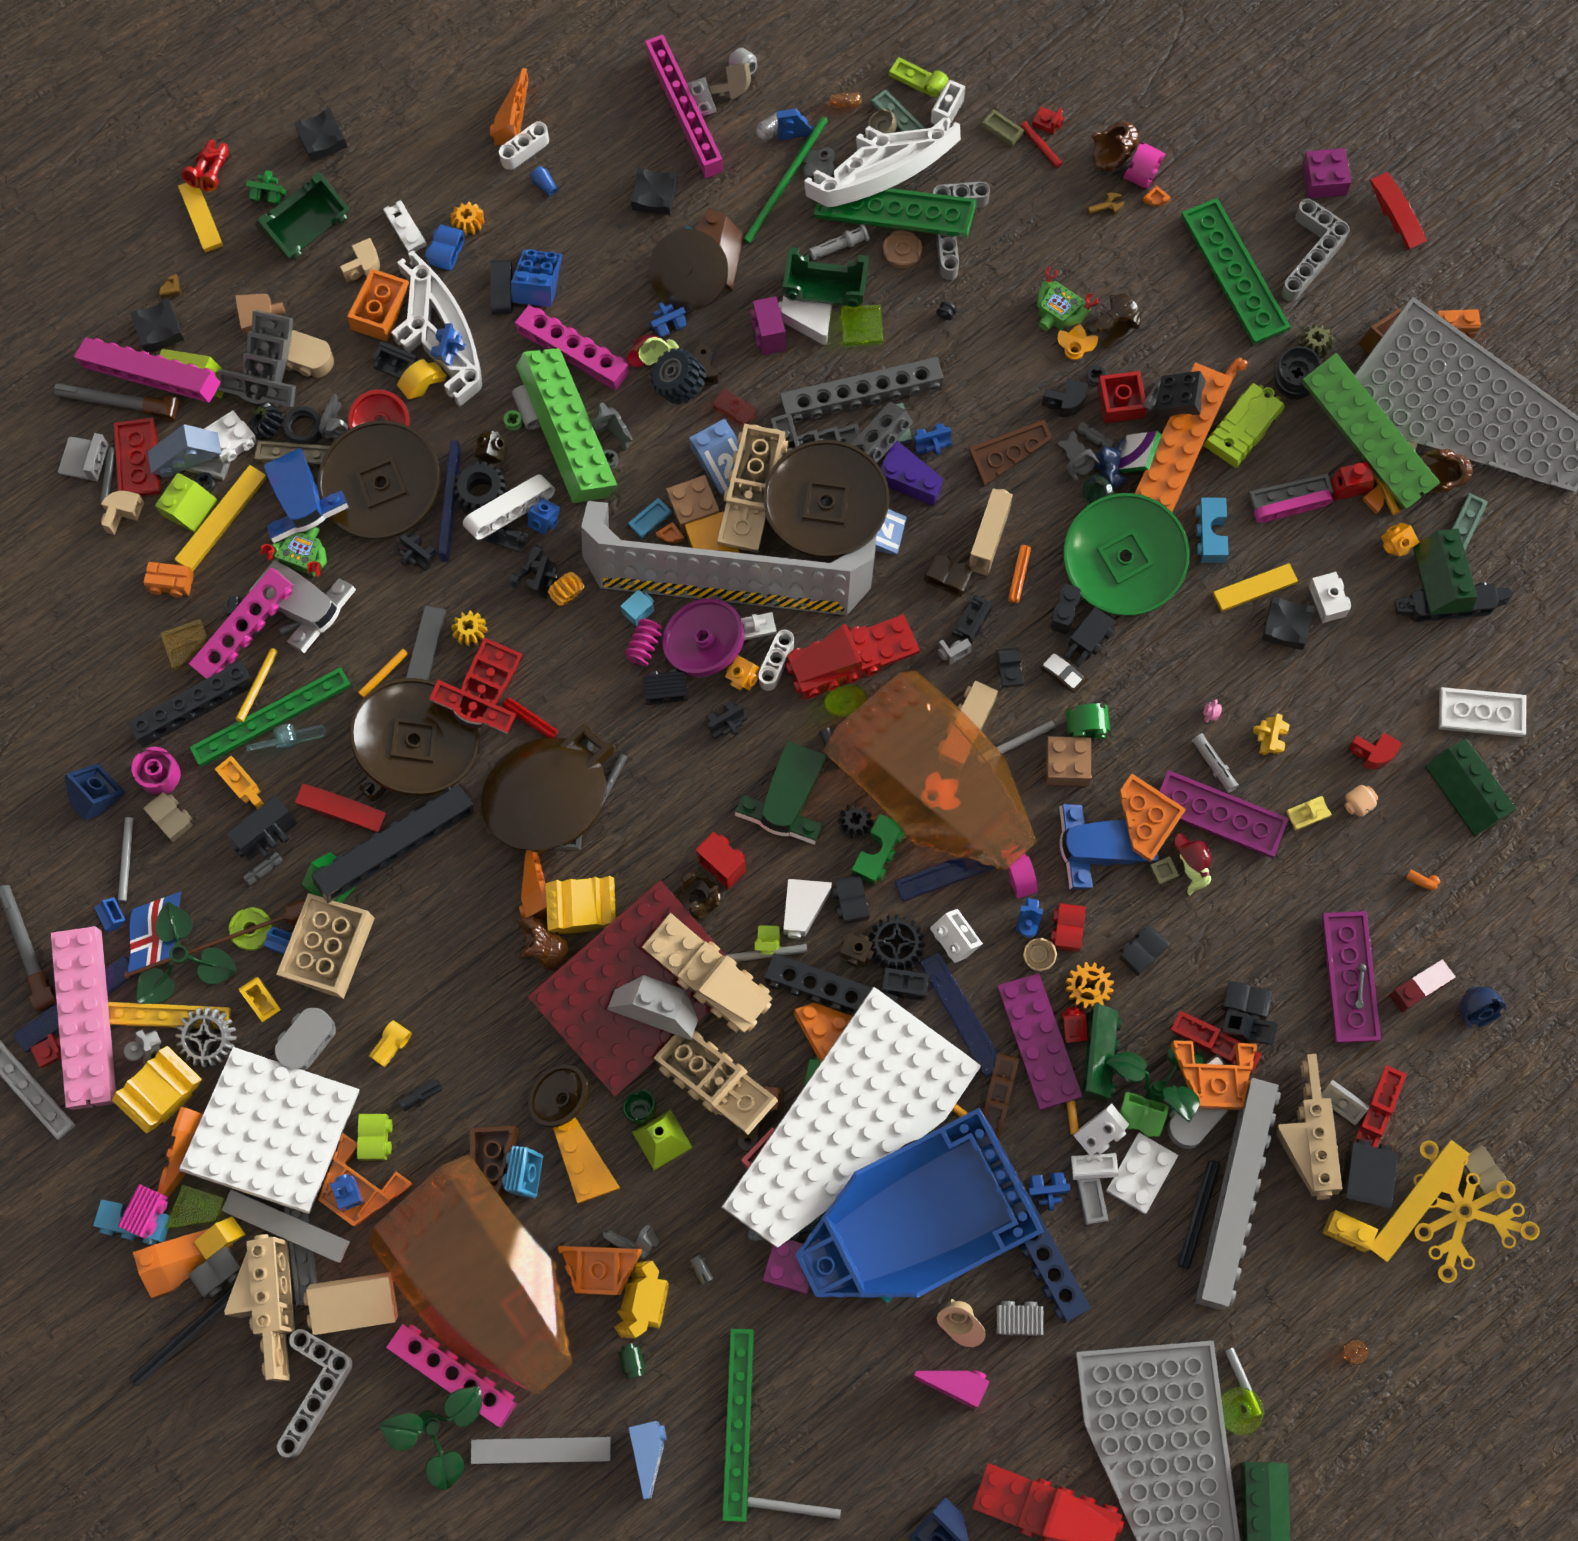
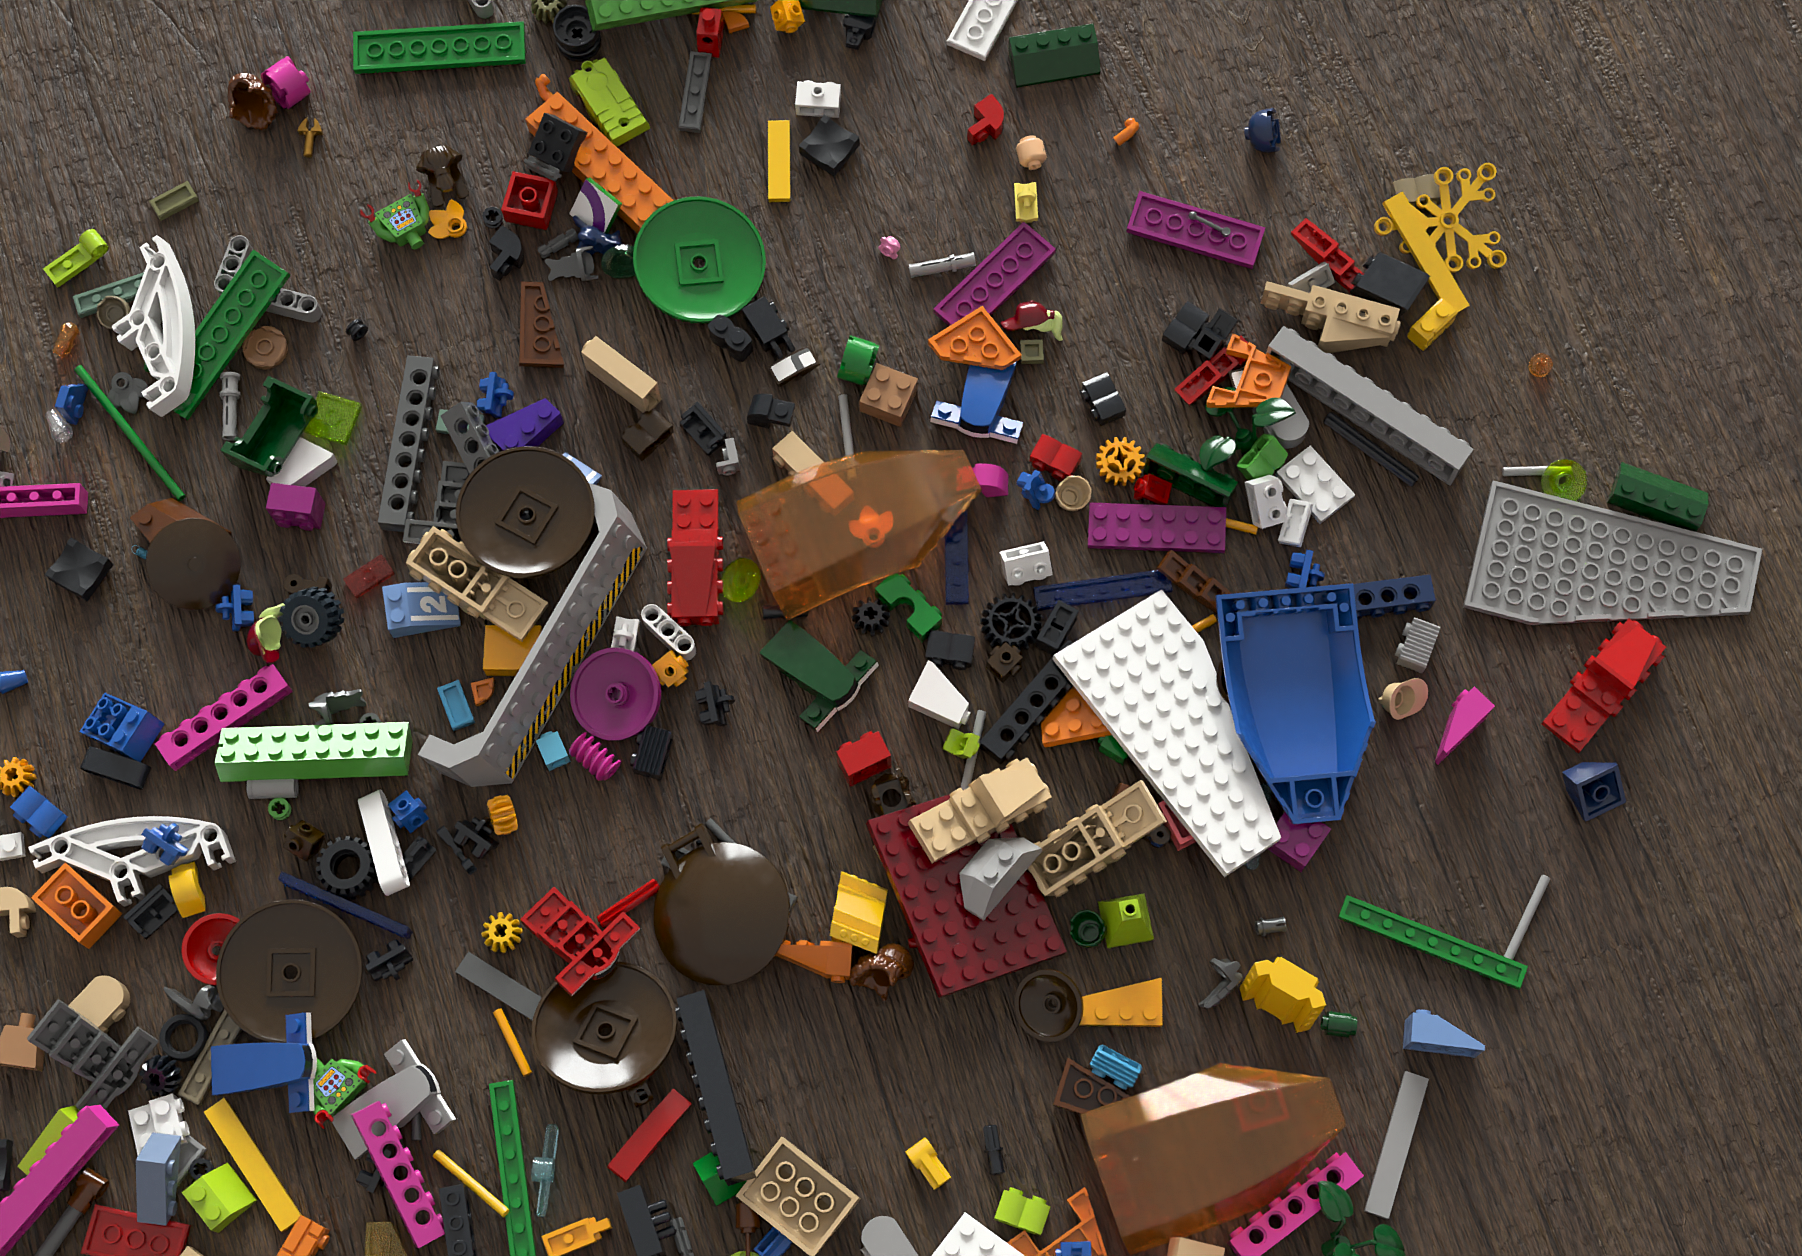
camera: 70 degrees left, 0 degrees up
(599, 1268) = (1237, 1024): orange wing -> none
(691, 501) = (460, 654): medium nougat brick -> none
(948, 102) = (123, 239): white brick -> none
(1019, 574) = (673, 368): orange axle -> none
(1041, 144) = (212, 171): red bar -> none
(1048, 120) = (187, 154): red bracket -> none
(1092, 1201) = (1326, 538): light grey tile -> none
(1156, 197) = (323, 87): orange tile -> none
(1211, 547) = (720, 183): dark azure arch -> none
(1269, 732) = (934, 205): yellow hips -> none
(1293, 506) = (711, 94): dark pink beam -> none
(1422, 986) = (1227, 174): slope -> none

